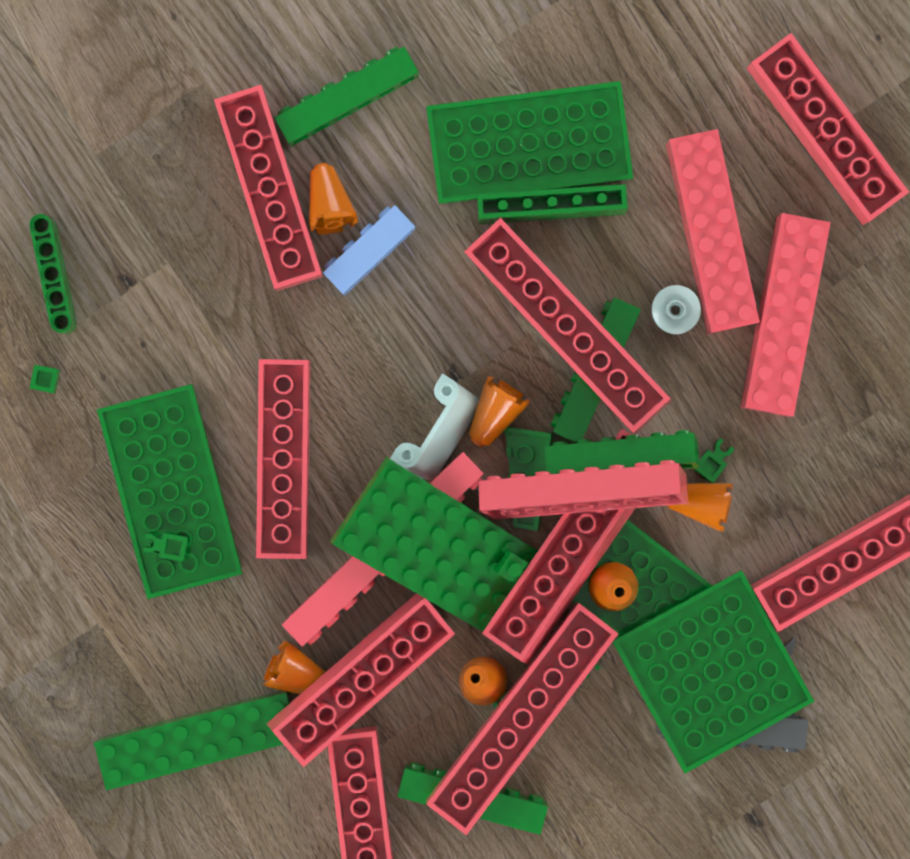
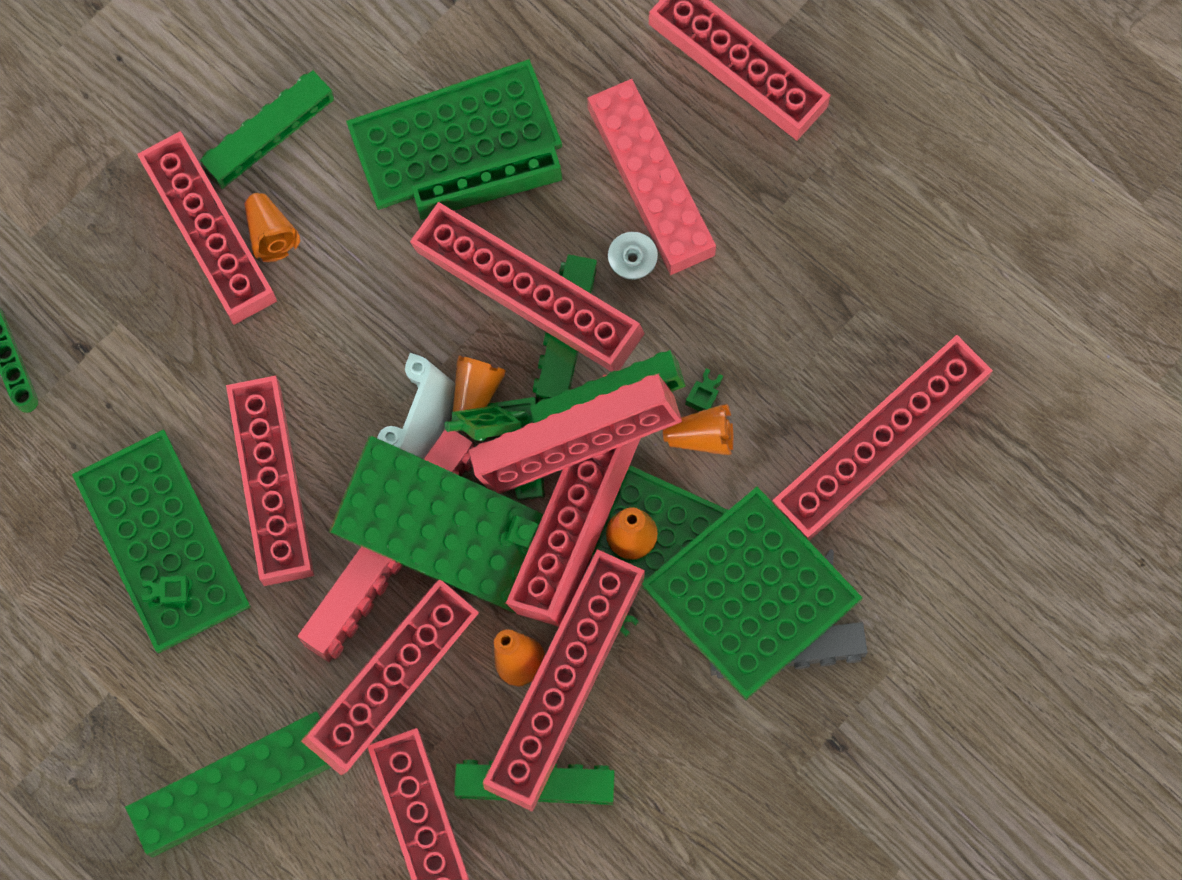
camera: 10 degrees left, 15 degrees down
(44, 379) = (14, 457): green plate -> none
(291, 670) = (317, 688): orange cone -> none
(369, 250) = (316, 265): light blue brick -> none
(500, 454) = (486, 421): none -> green plate
(785, 315) = (741, 238): coral brick -> none

